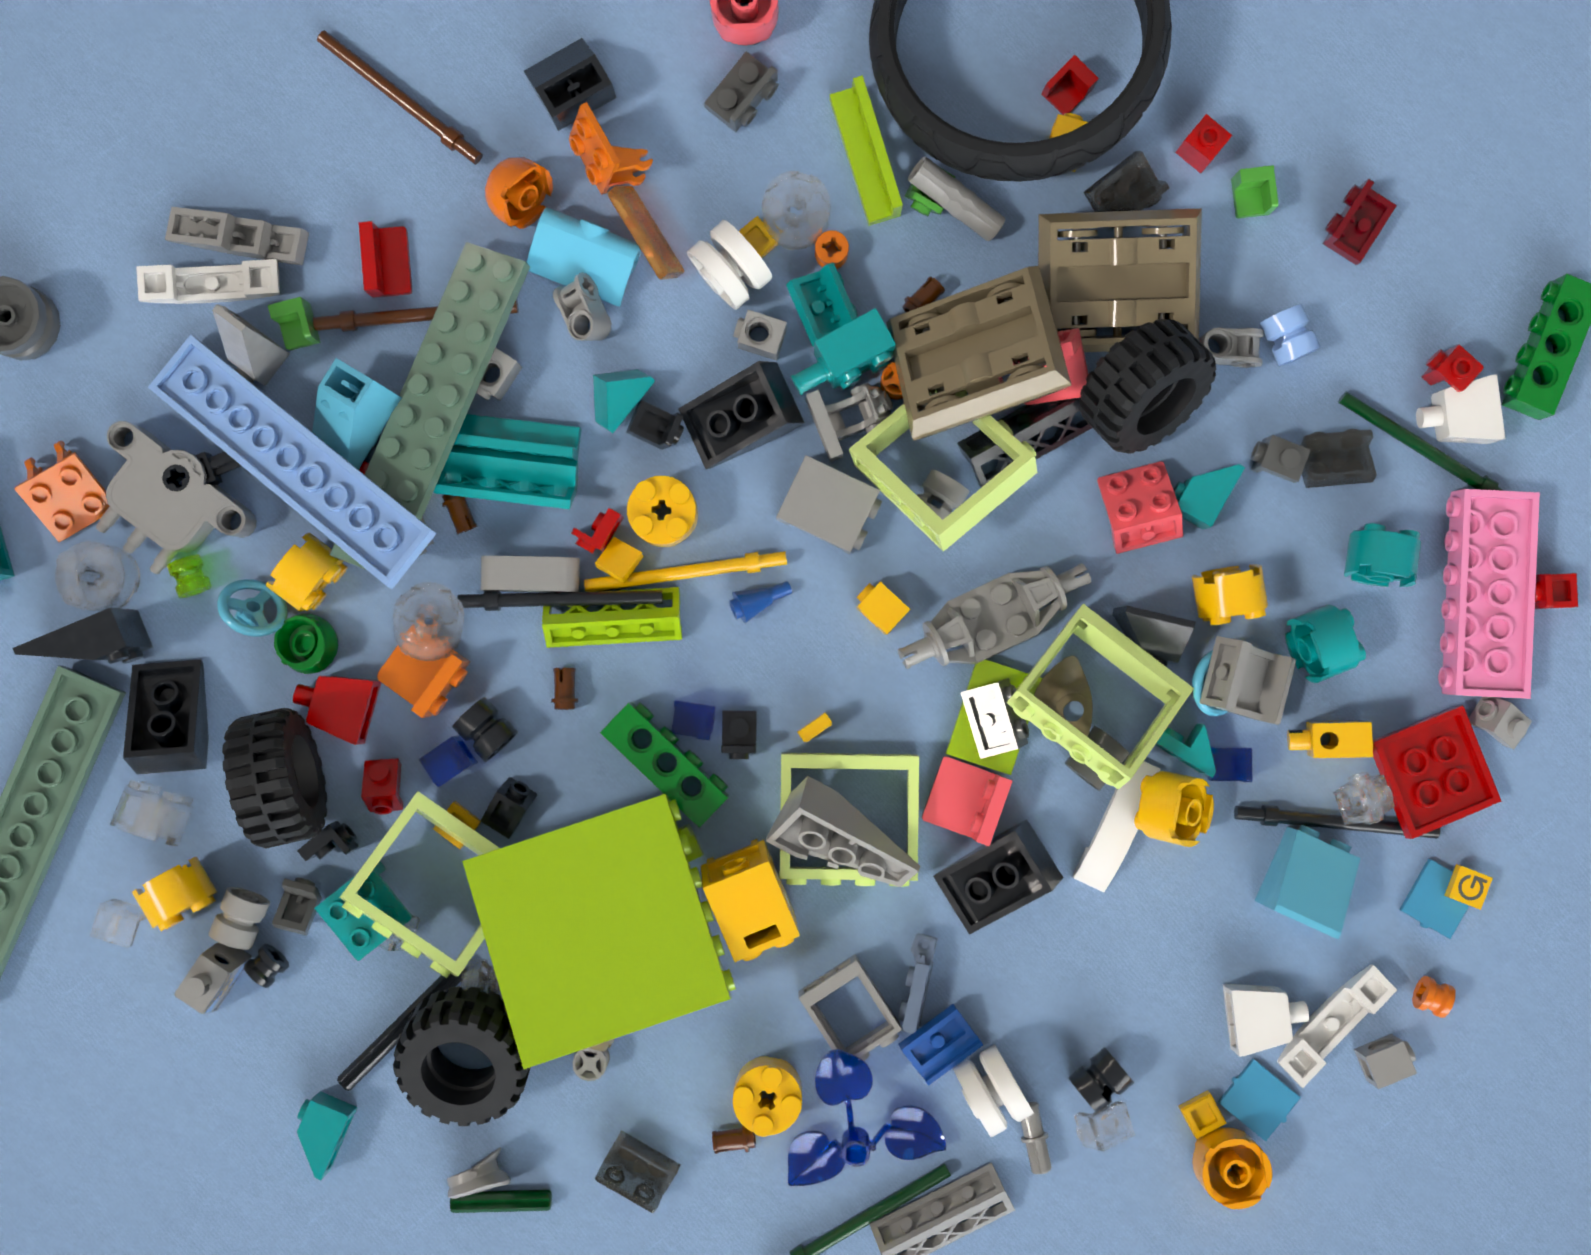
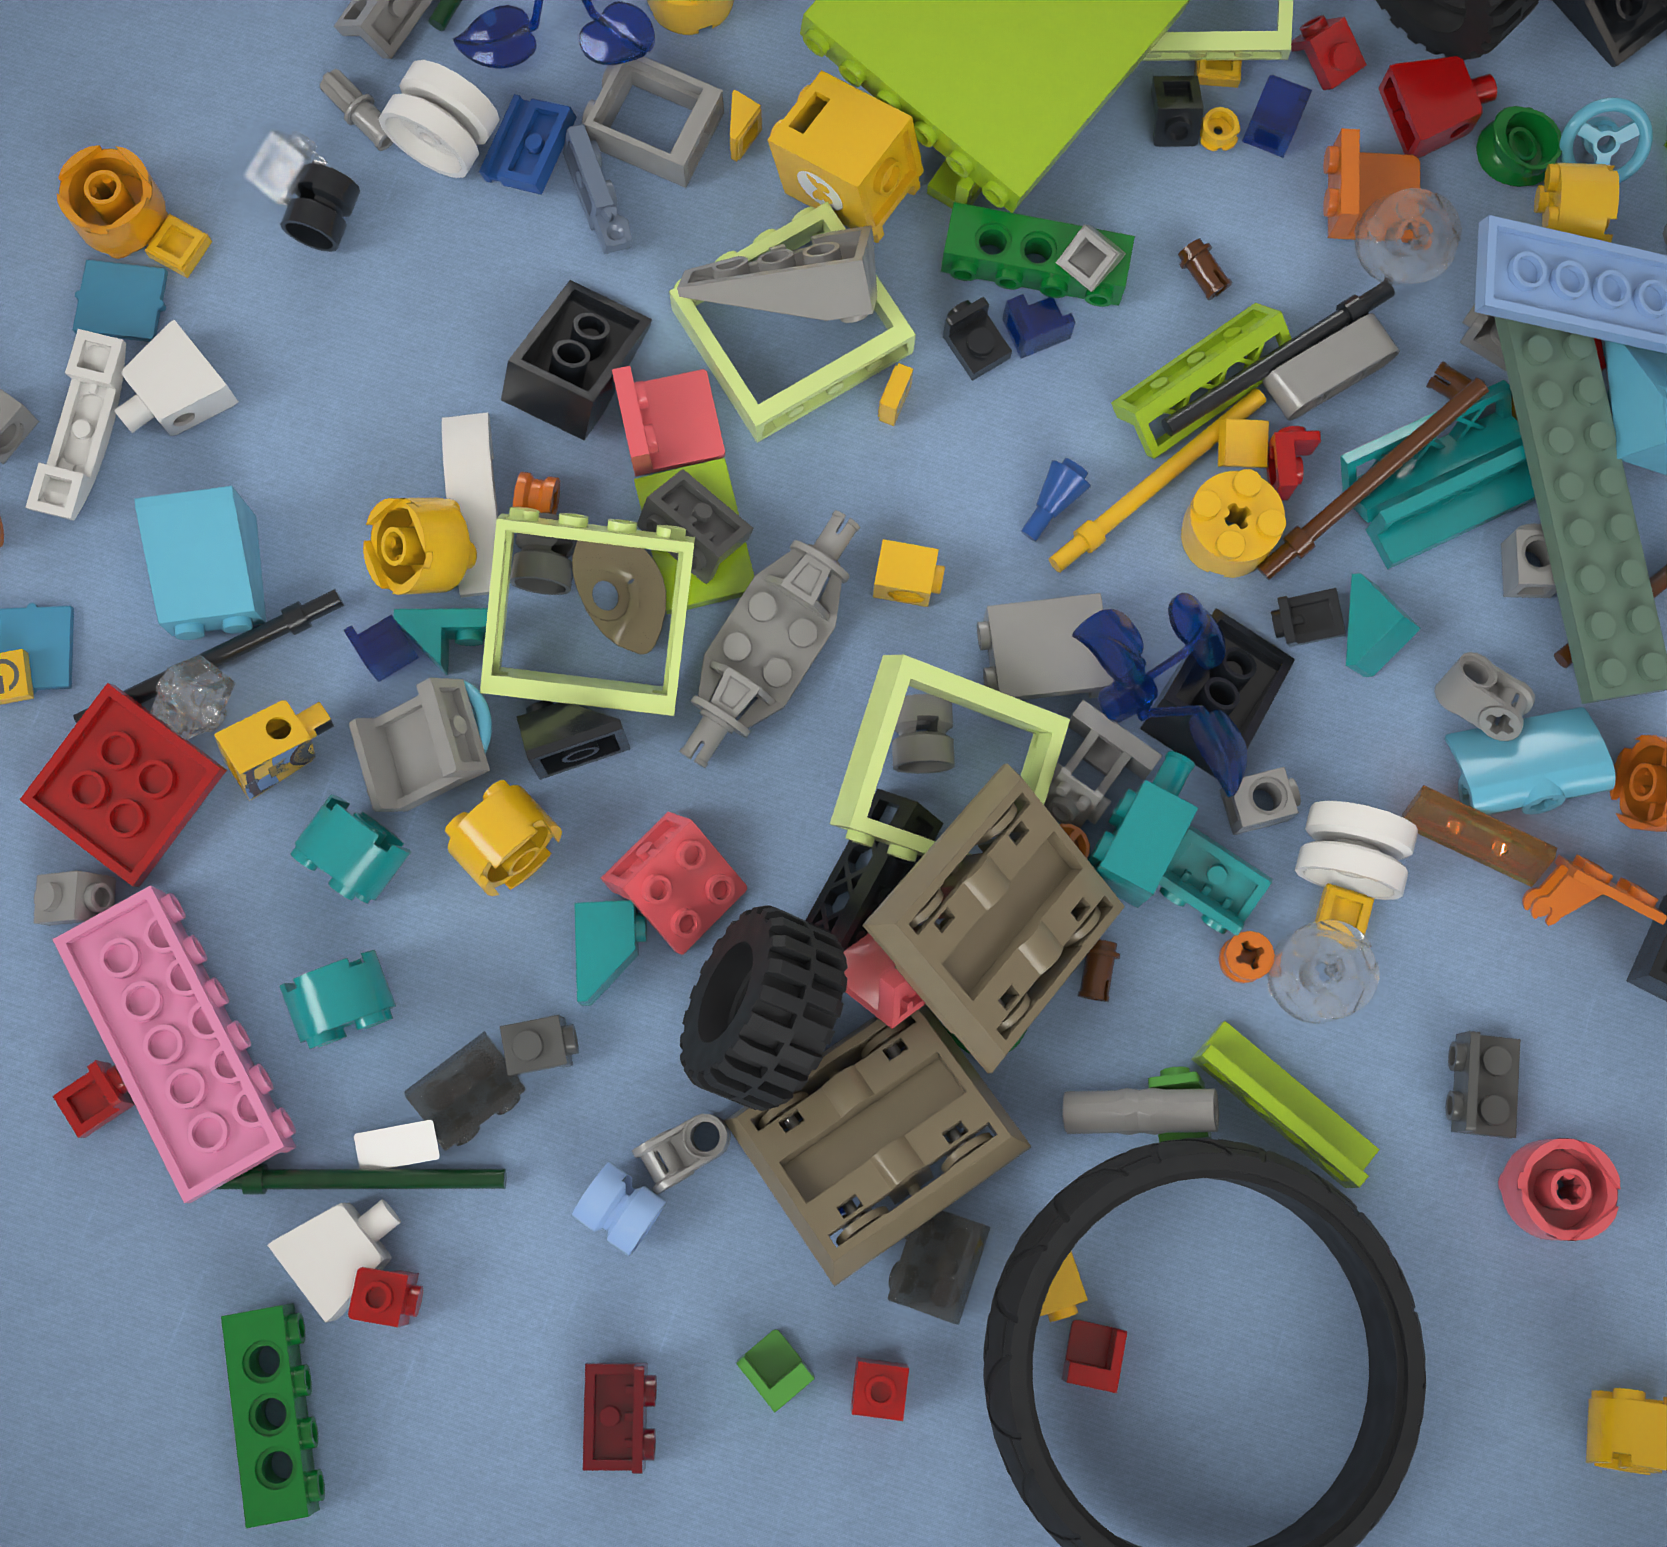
camera: 145 degrees right, 10 degrees down
(481, 725) = (1262, 169): black wheel -> none
(490, 767) = (1221, 119): none -> yellow plate
(626, 476) = (1301, 540): none -> reddish brown bar
(638, 734) = (1090, 257): none -> light grey slope
(795, 970) = (744, 124): none -> yellow slope
(808, 447) = (1119, 650): none -> clear blue plant
(1079, 799) = (537, 493): none -> orange wheel
(1394, 454) = (397, 1145): none -> white sticker

